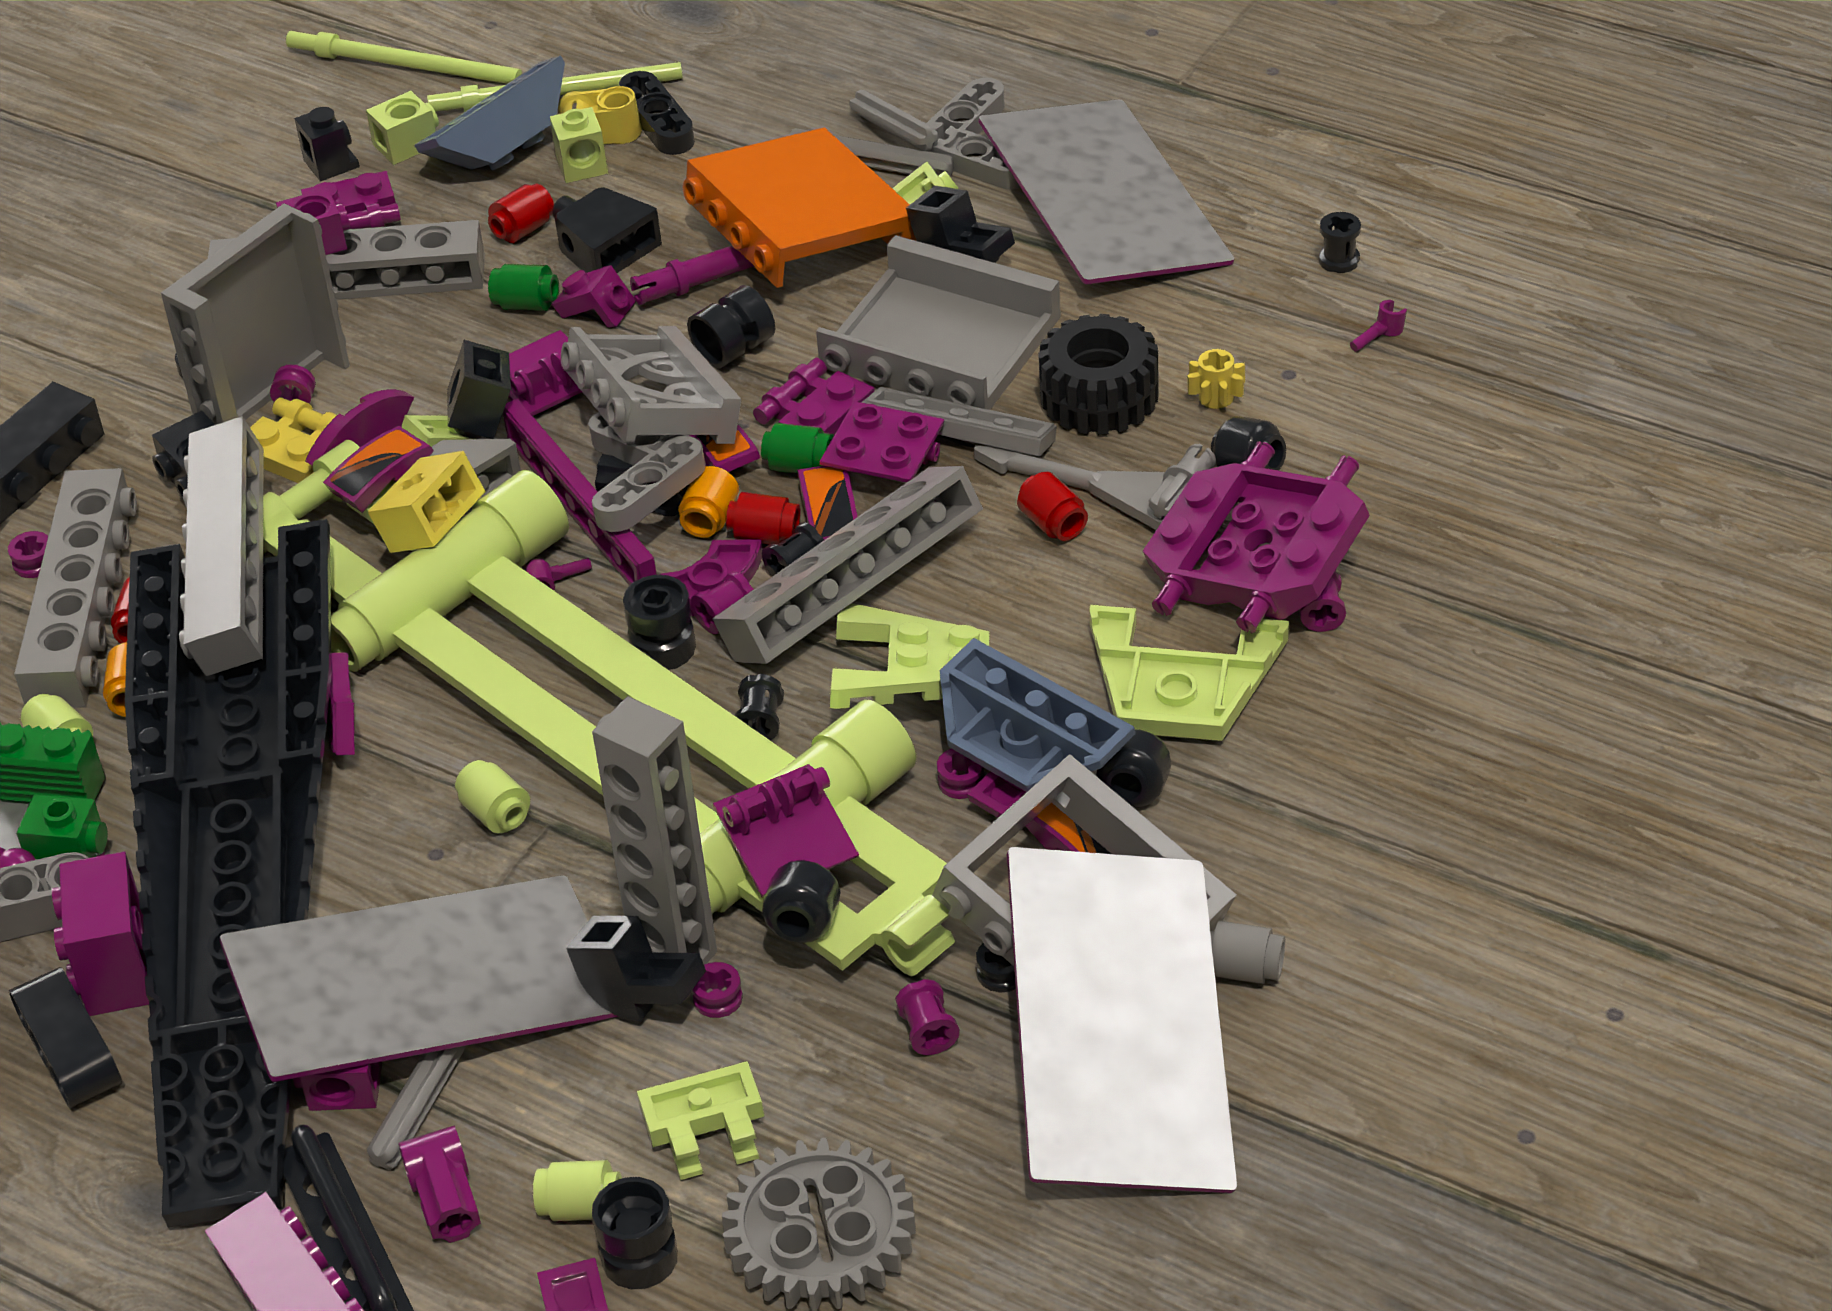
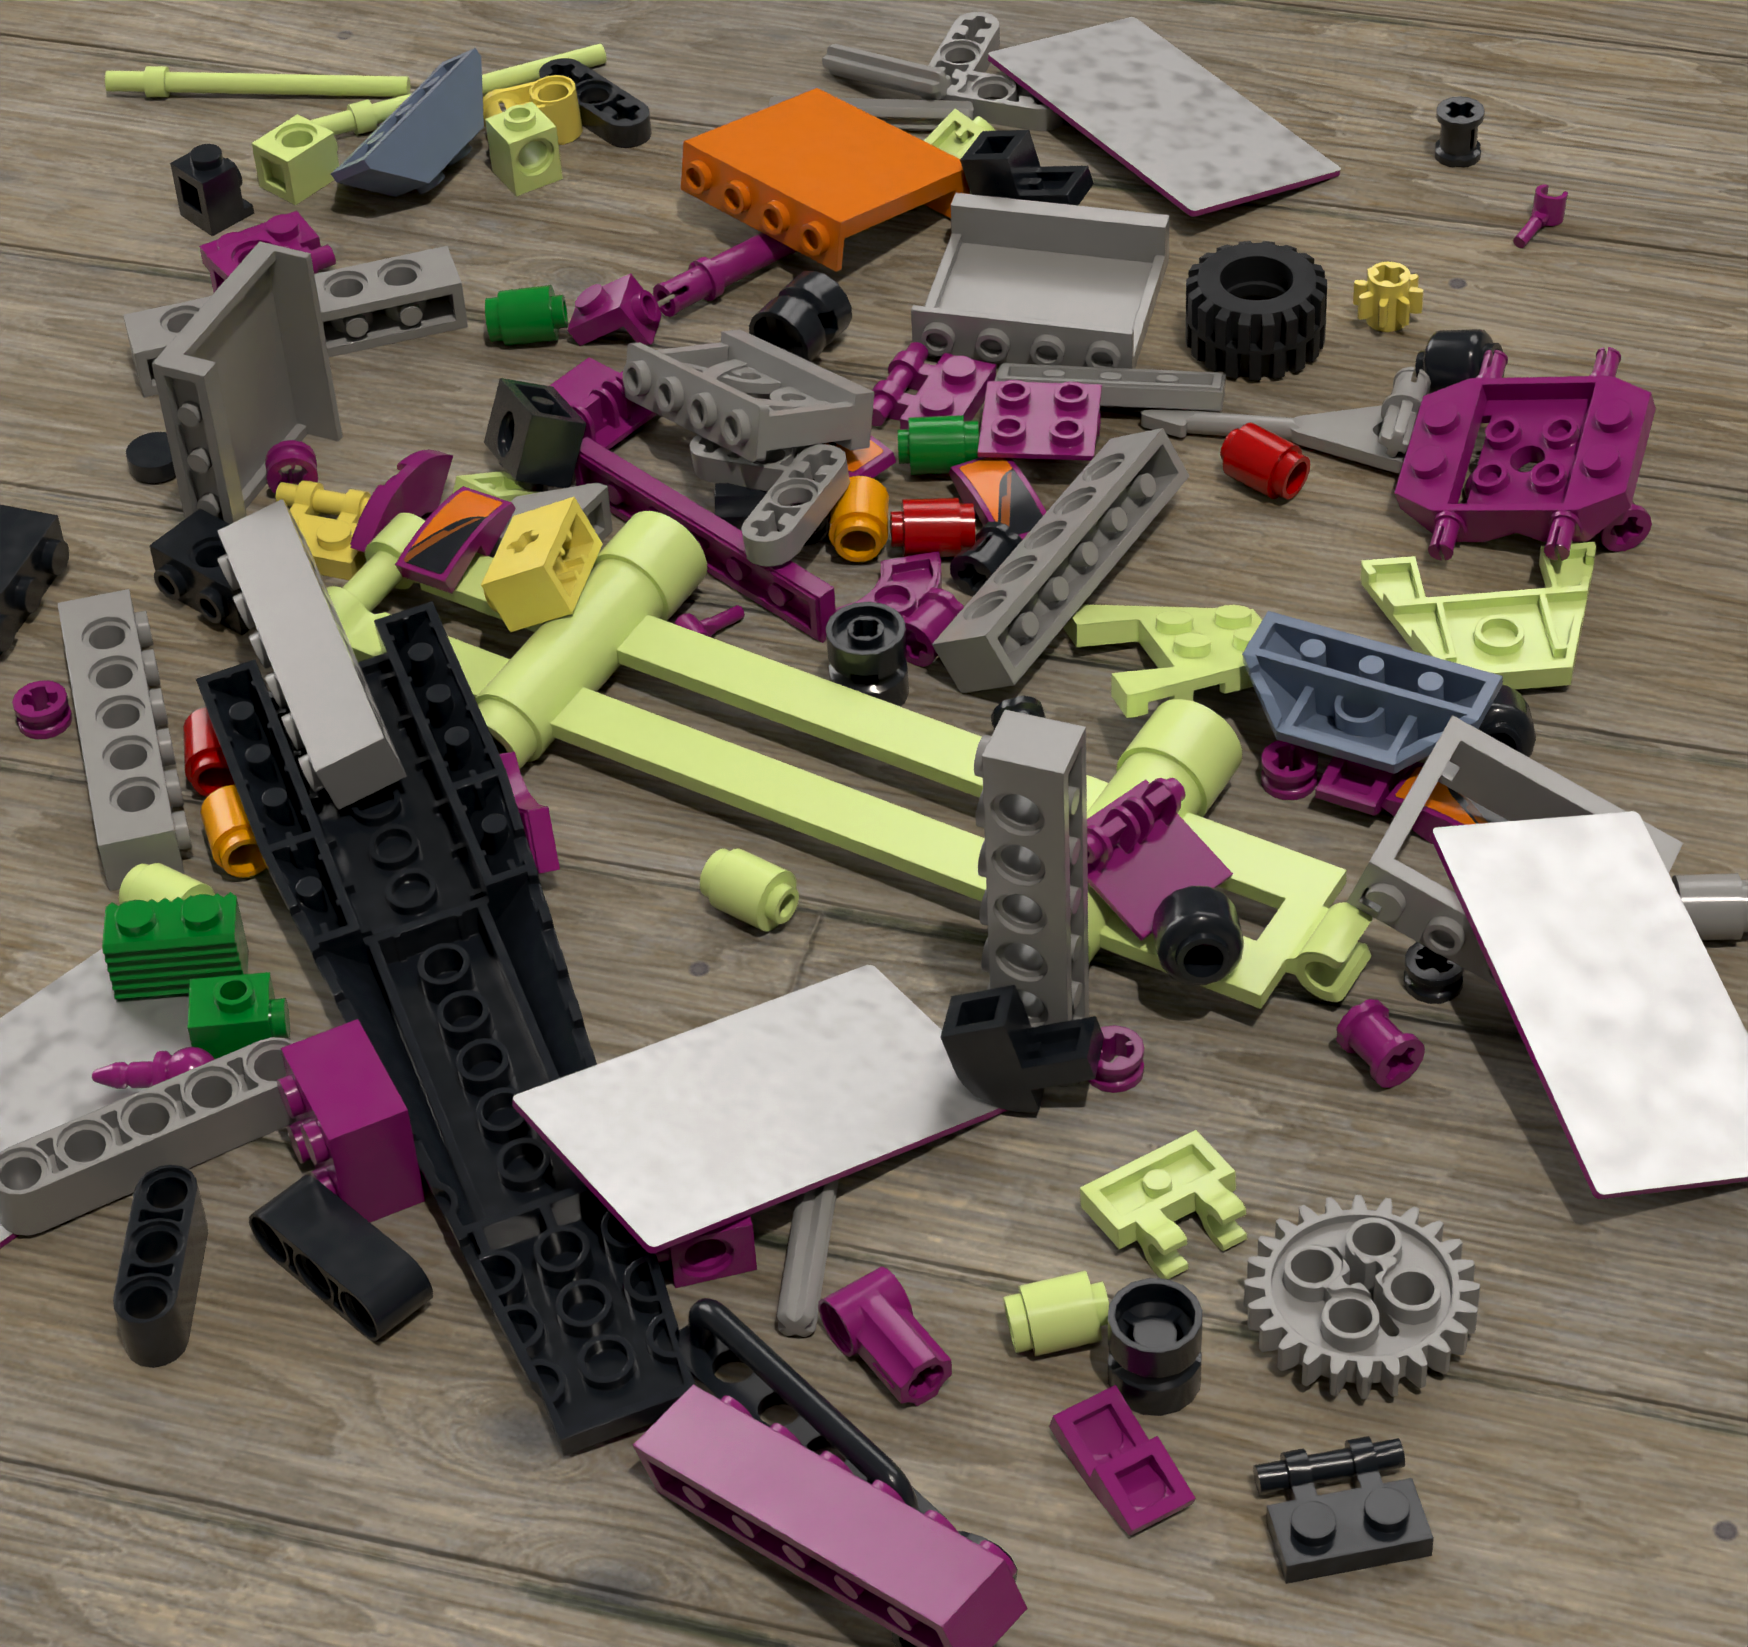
camera: 15 degrees left, 0 degrees up
(520, 212) = (484, 233): red brick -> none
(605, 229) = (596, 237): black torso -> none

